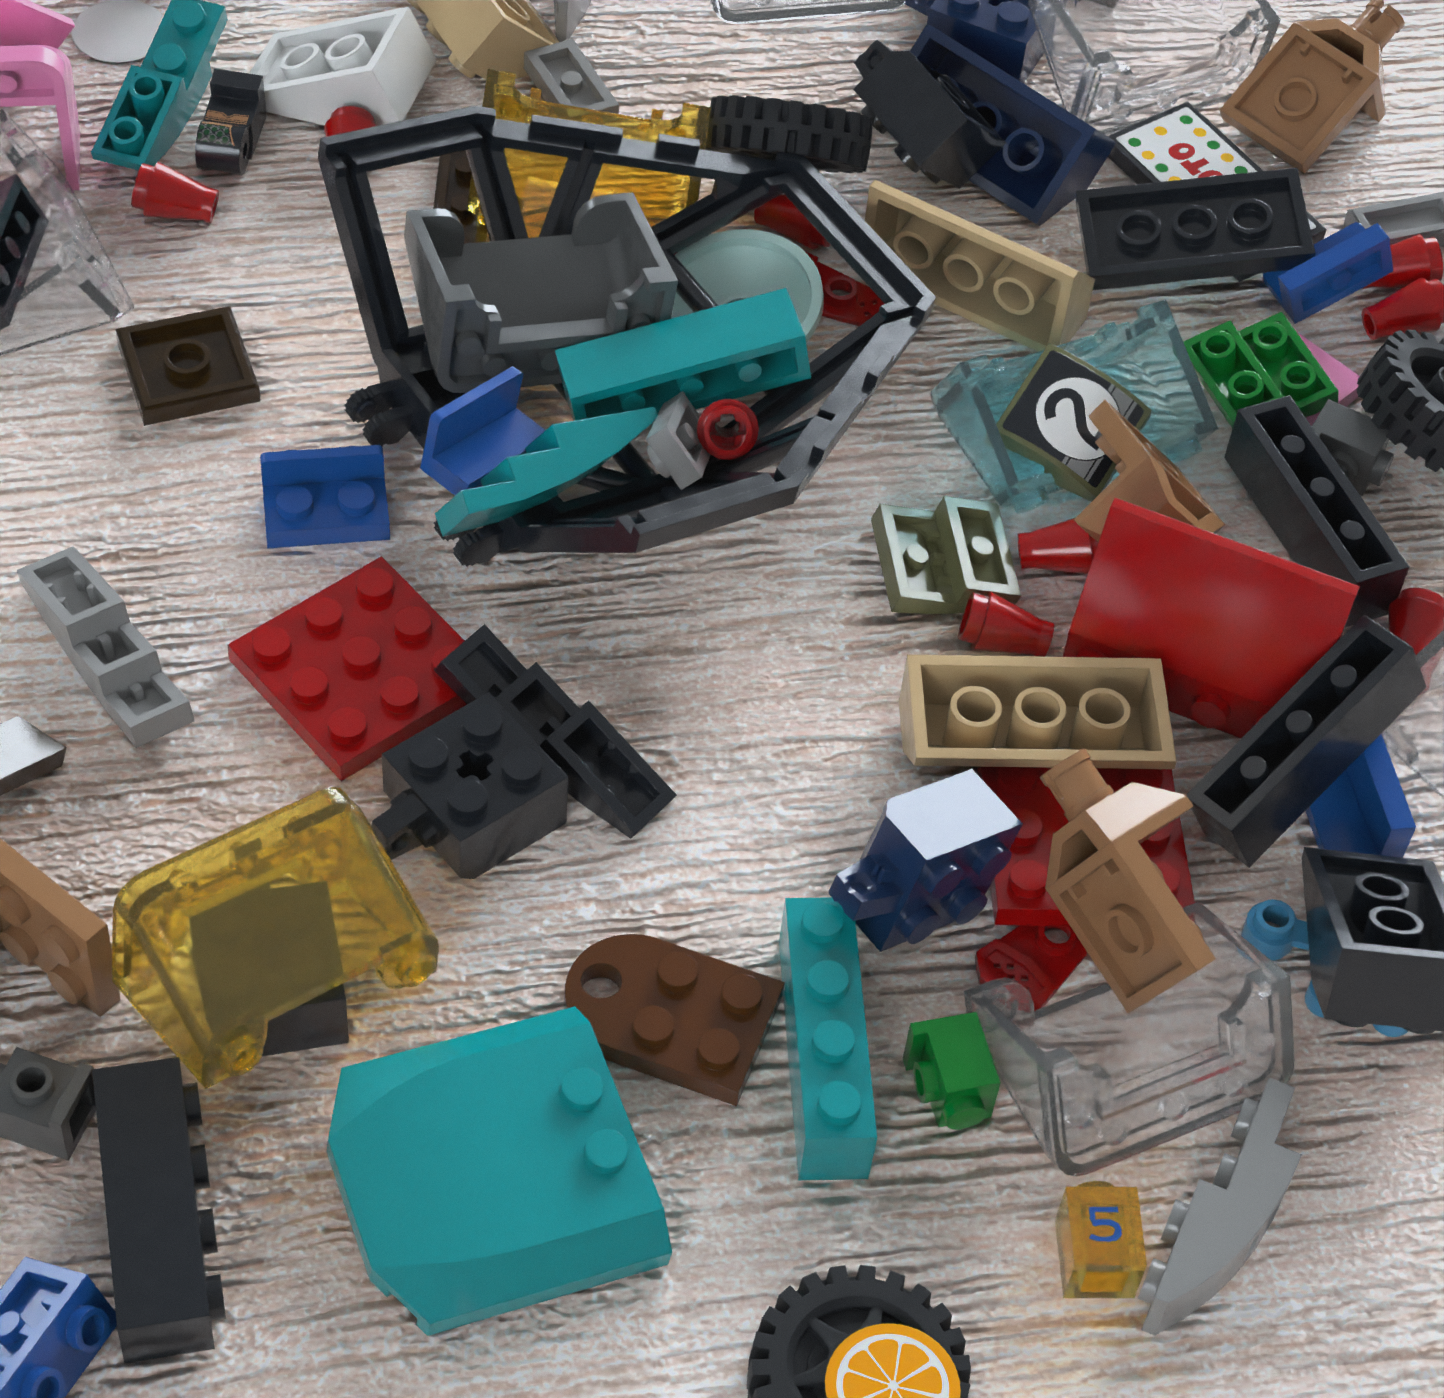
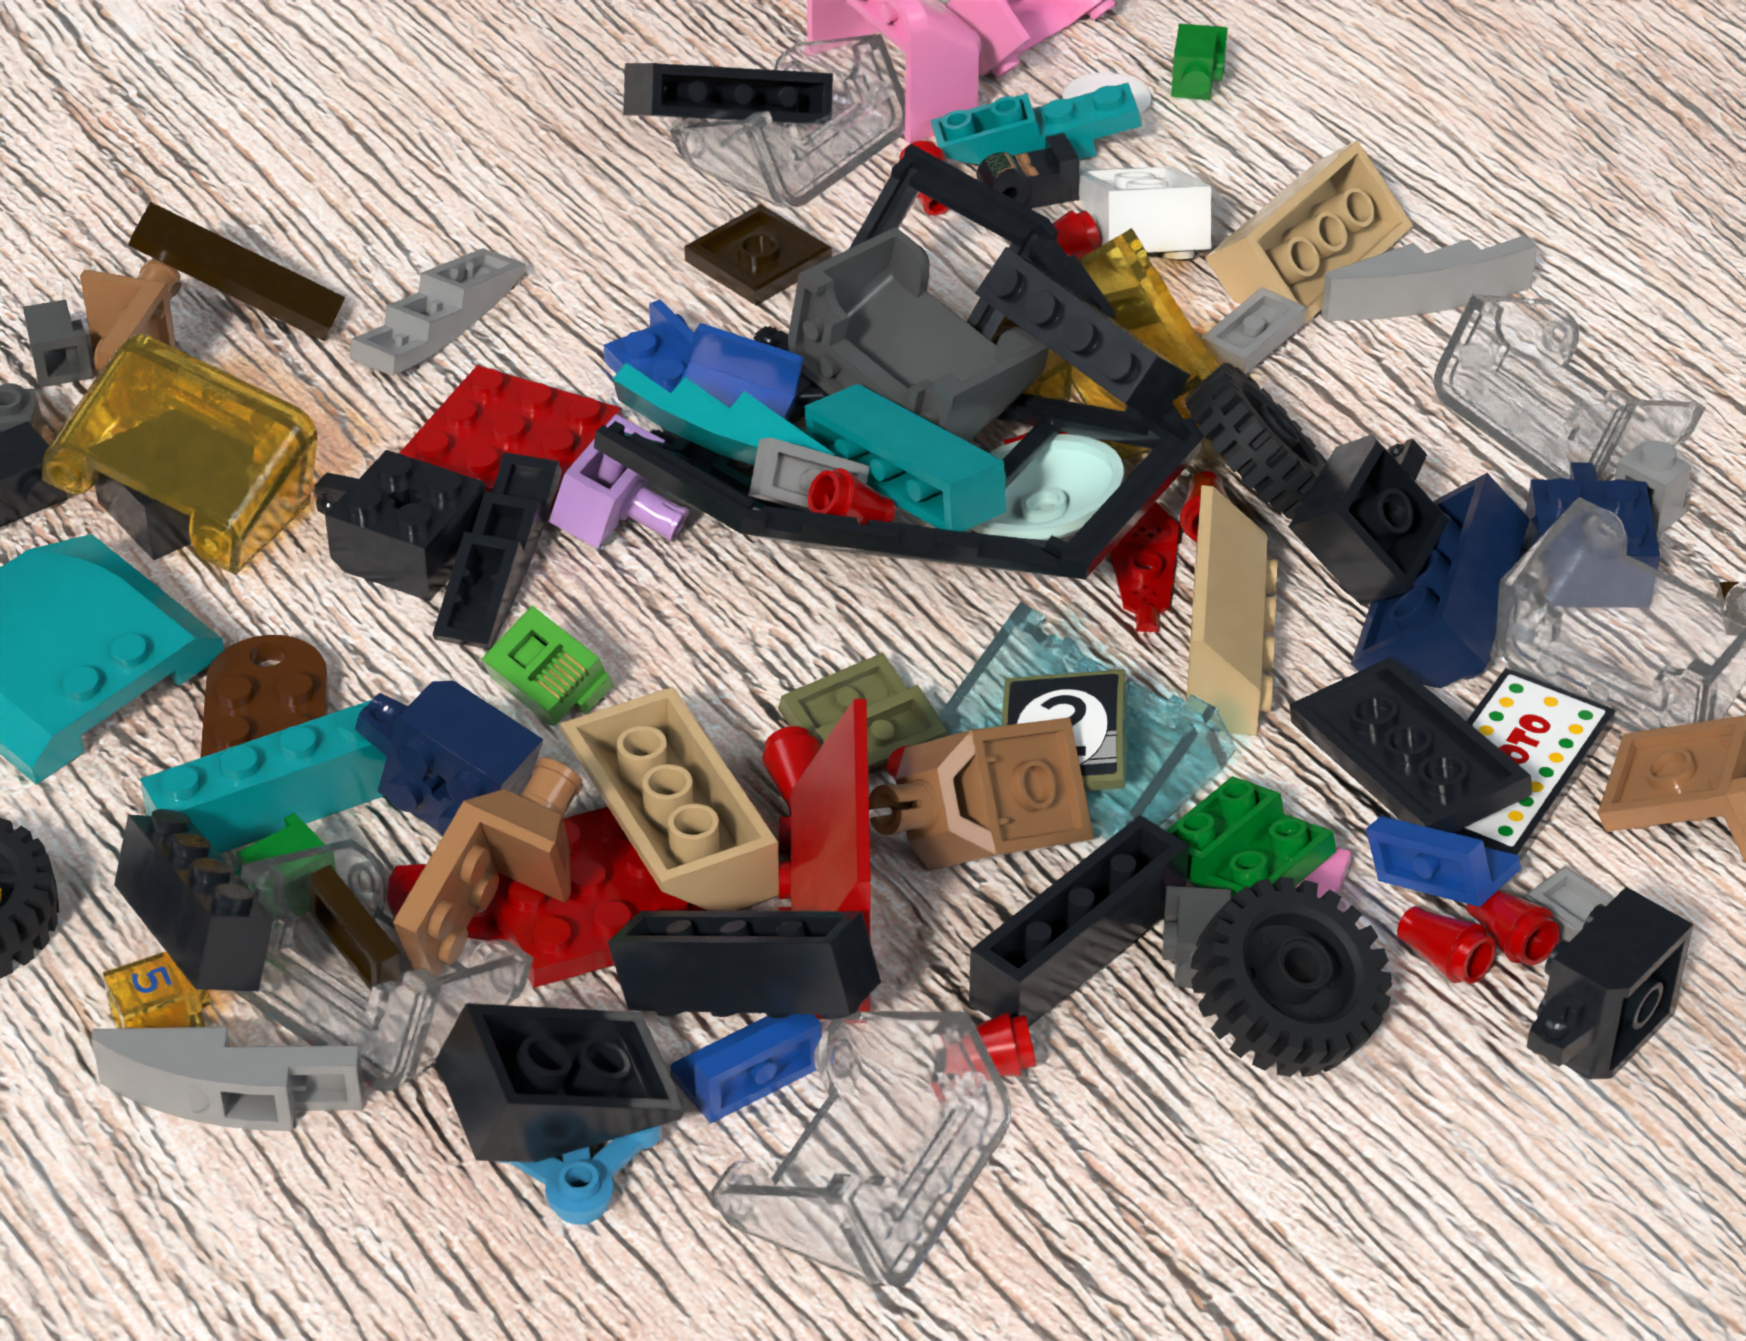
camera: 70 degrees right, 10 degrees down
(526, 599) = (603, 493): none -> lavender brick
(652, 158) = (1082, 335): none -> black brick
(770, 754) = (546, 668): none -> bright green piece
(1028, 1146) = (193, 902): none -> black brick
(1104, 1029) = (353, 929): none -> dark brown tile

